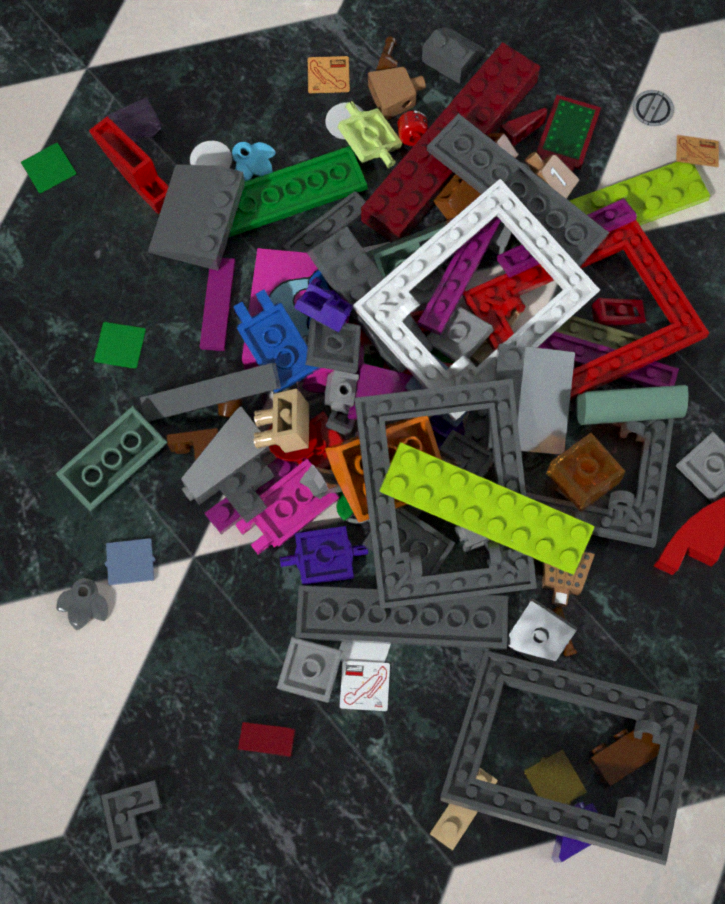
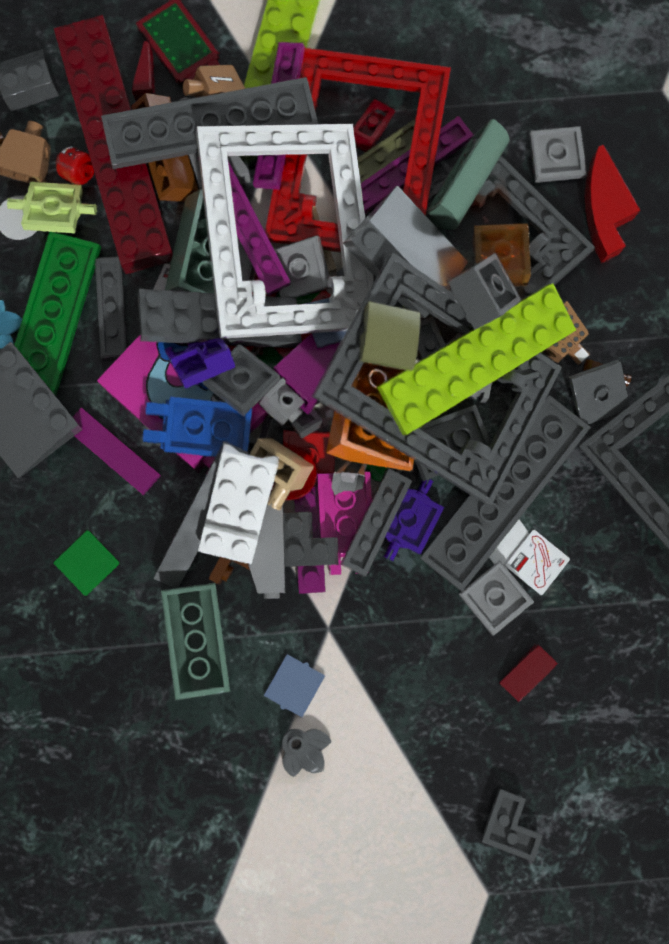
camera: 60 degrees left, 10 degrees up
(234, 410) = (238, 505): none -> white piece
(300, 528) = (376, 522): none -> dark grey plate
(444, 422) = (390, 336): none -> olive slope
(541, 472) = (484, 291): none -> dark grey slope

